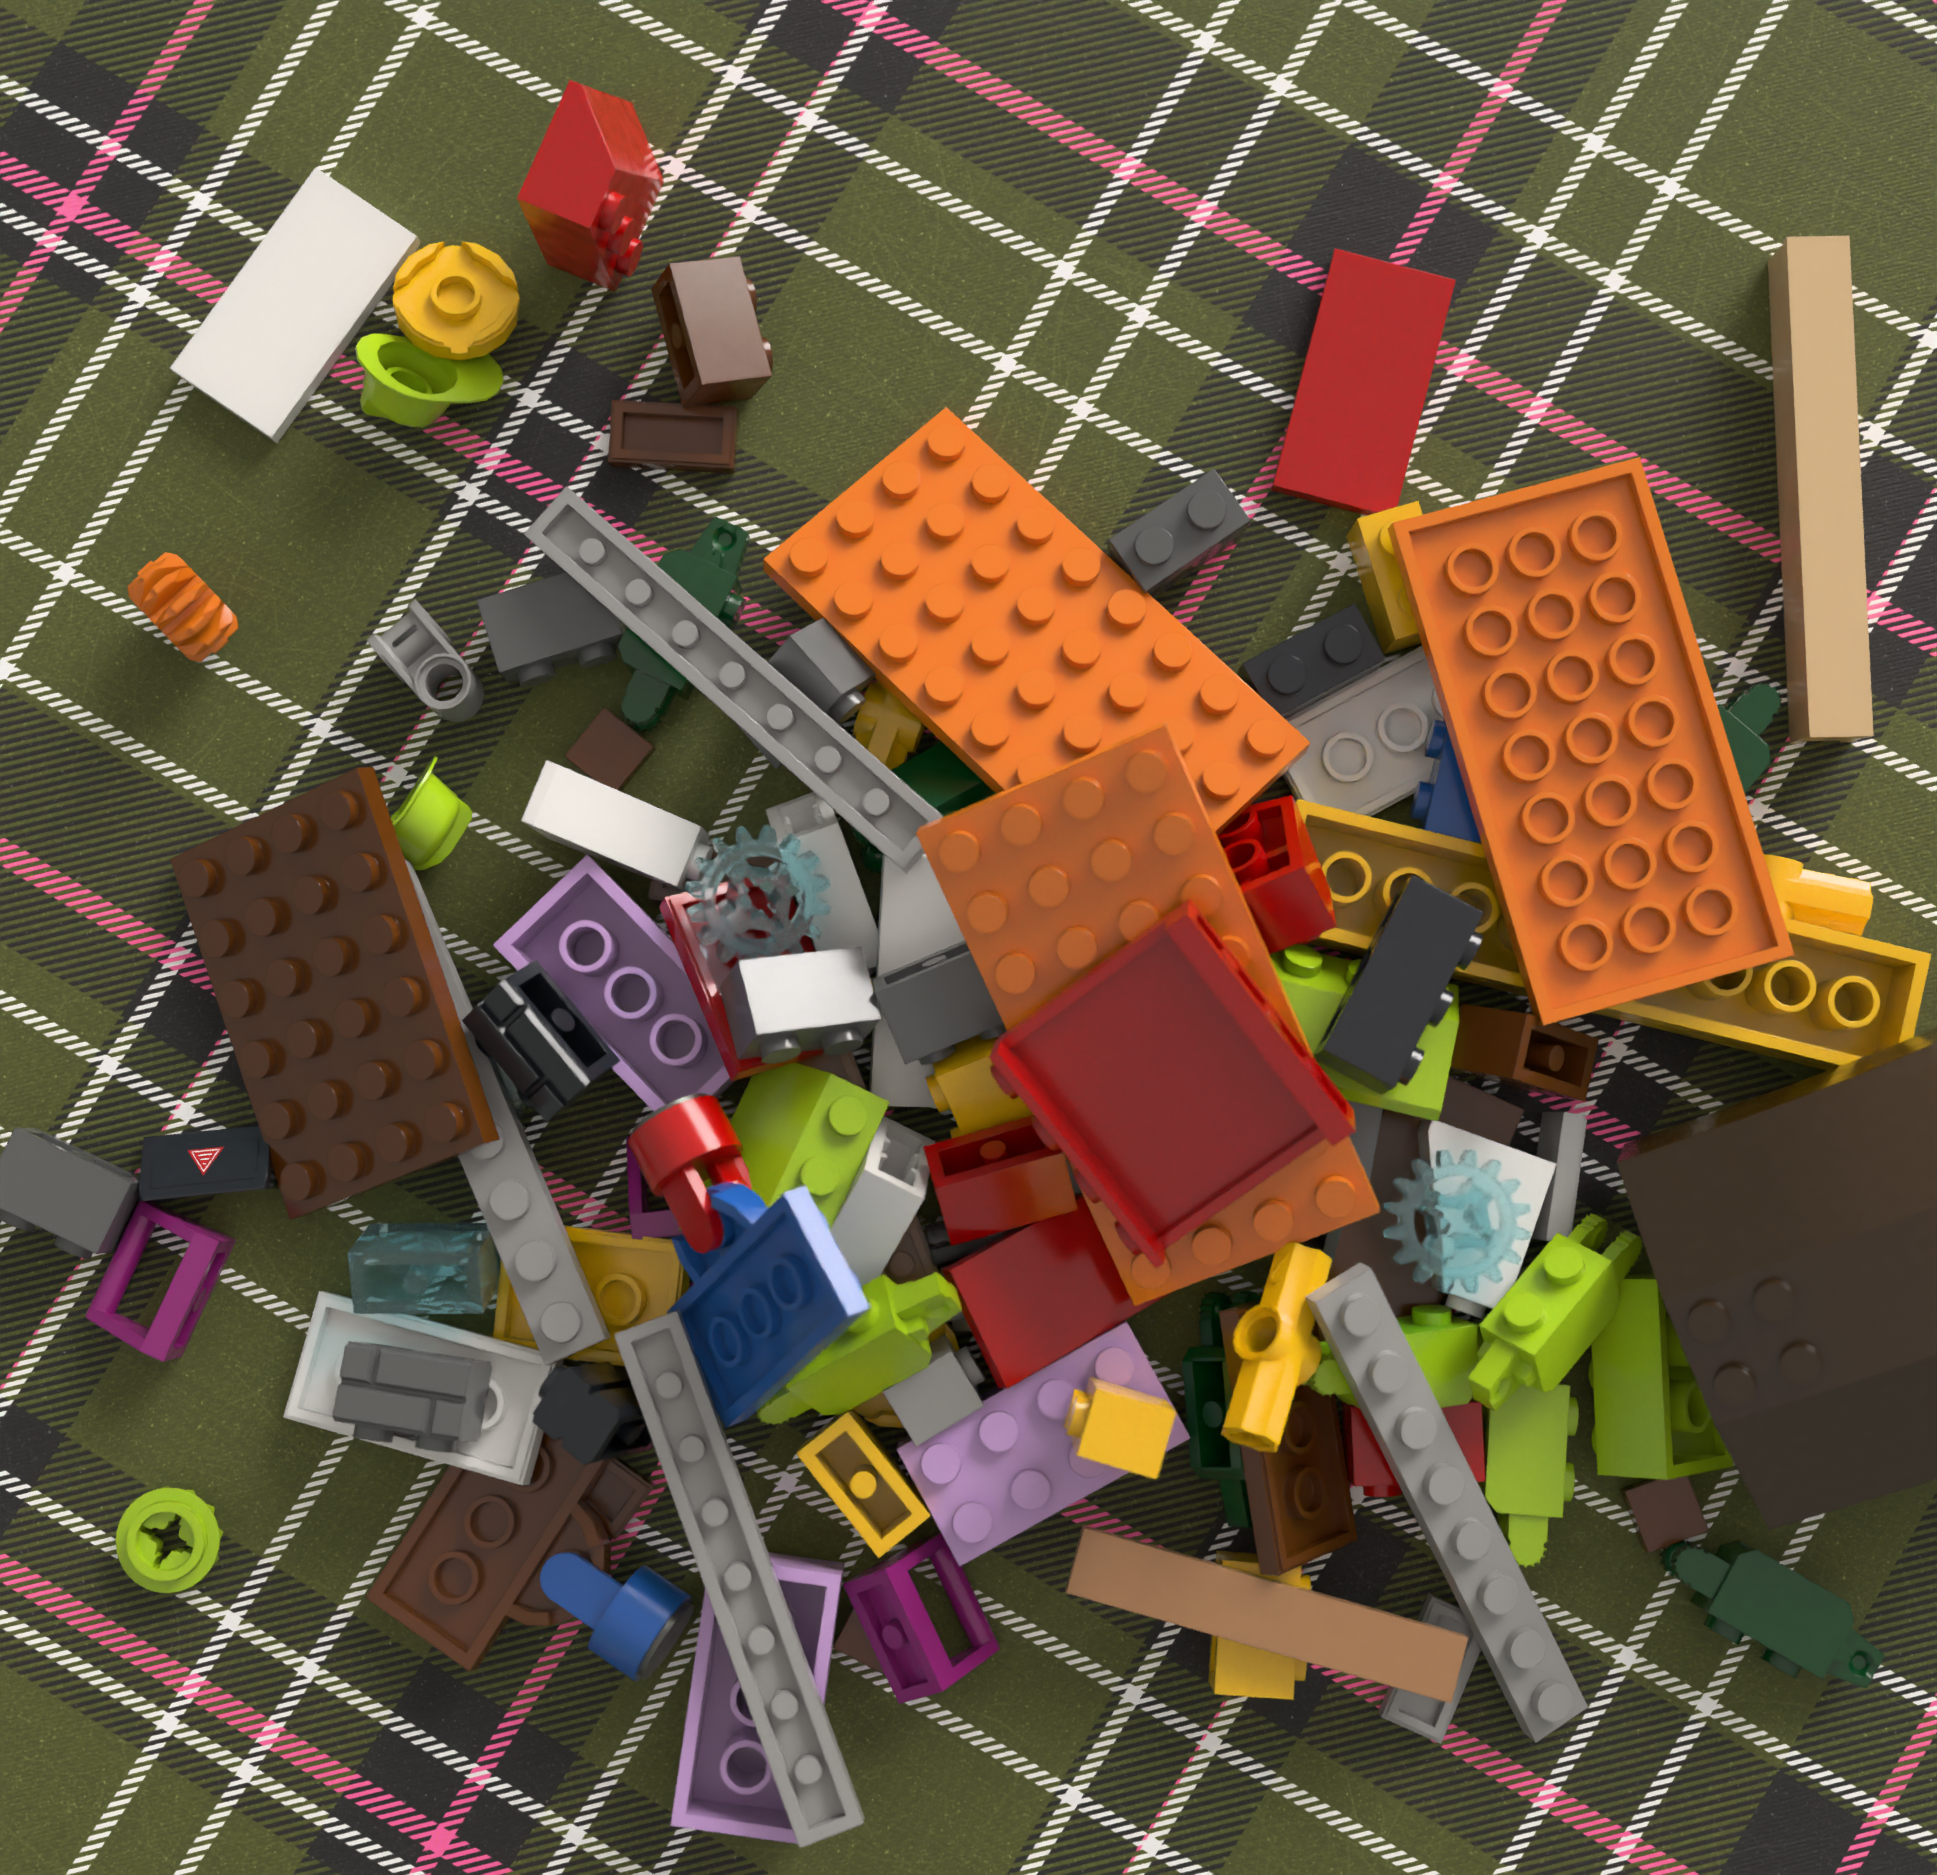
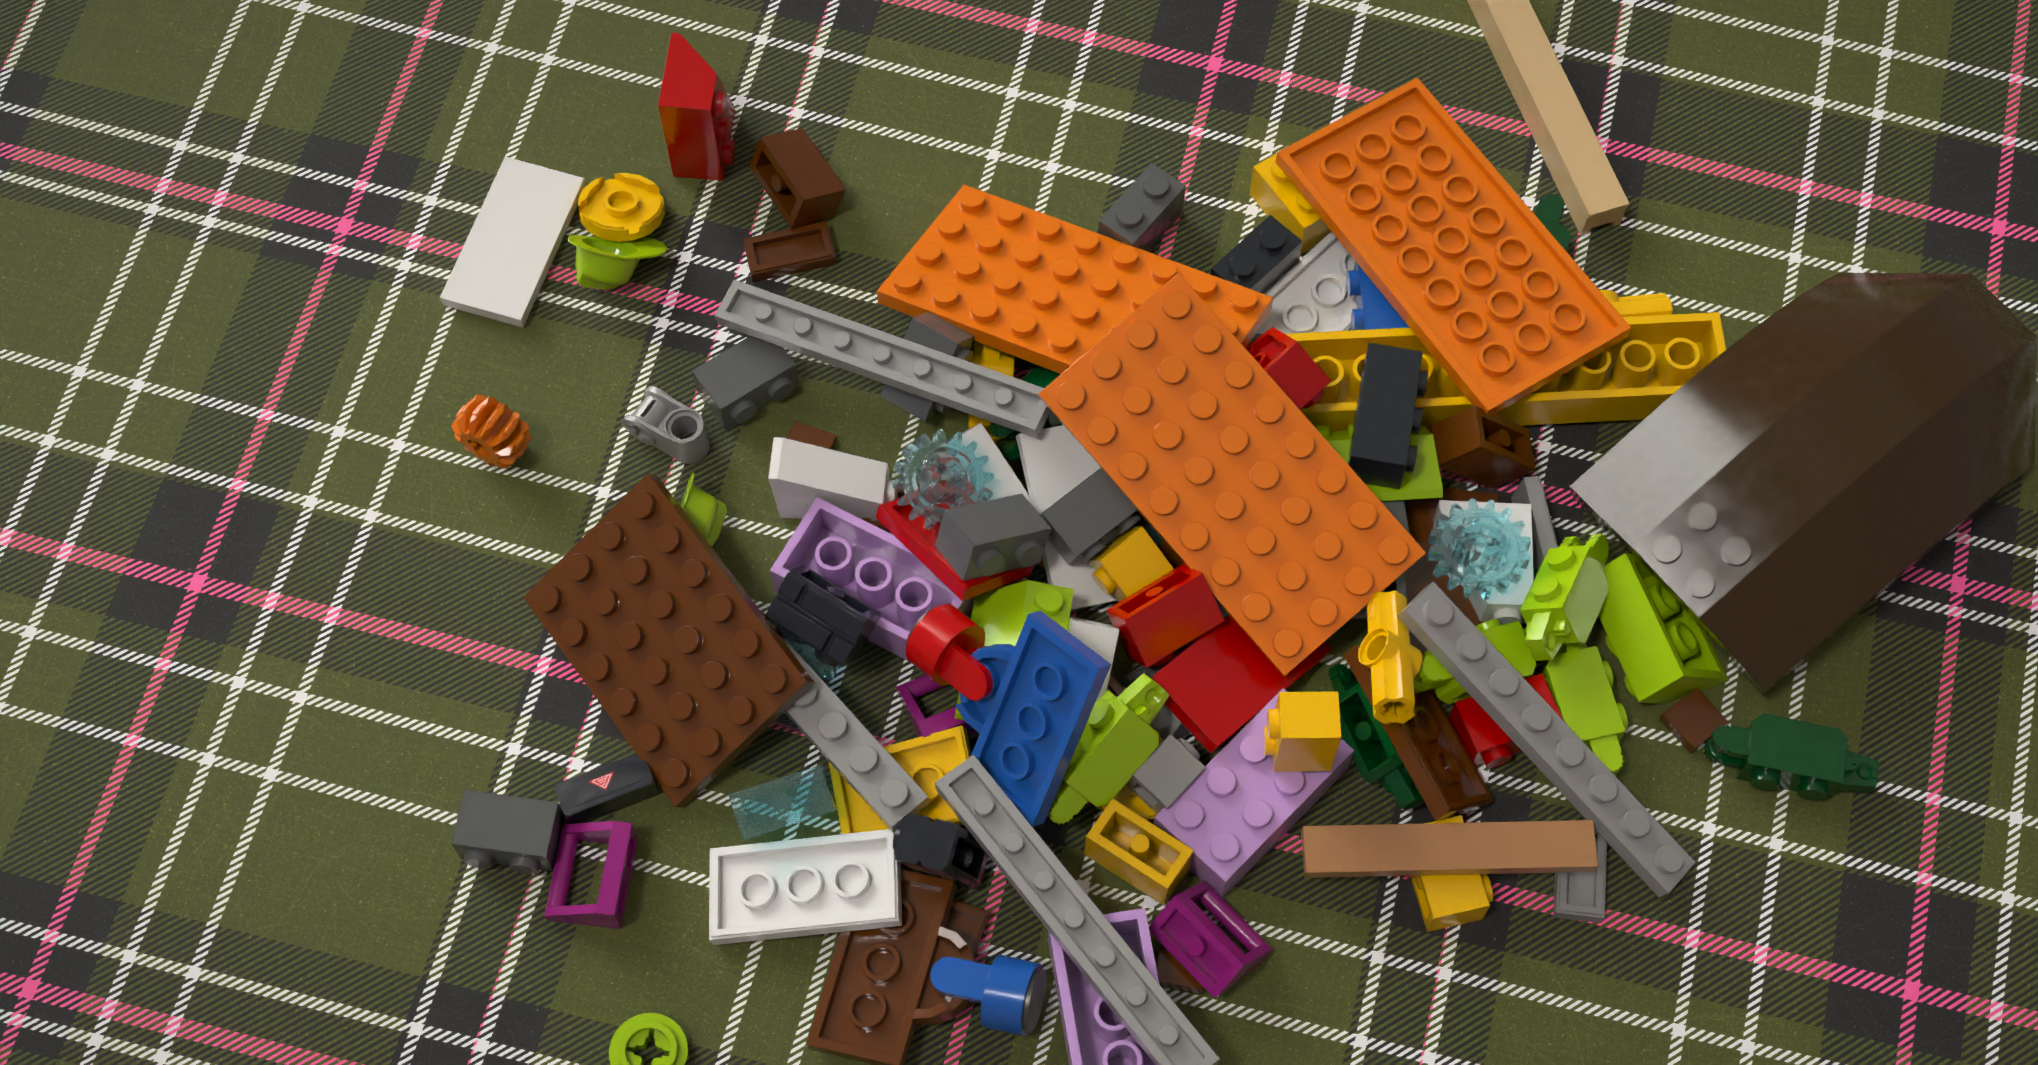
camera: 15 degrees left, 20 degrees down
(411, 1394) = (801, 878): dark grey brick -> none
(712, 579) = (822, 383): dark green hinge -> none
(1169, 1082) = (1259, 497): red panel -> none
(1363, 384) = (1226, 102): red tile -> none

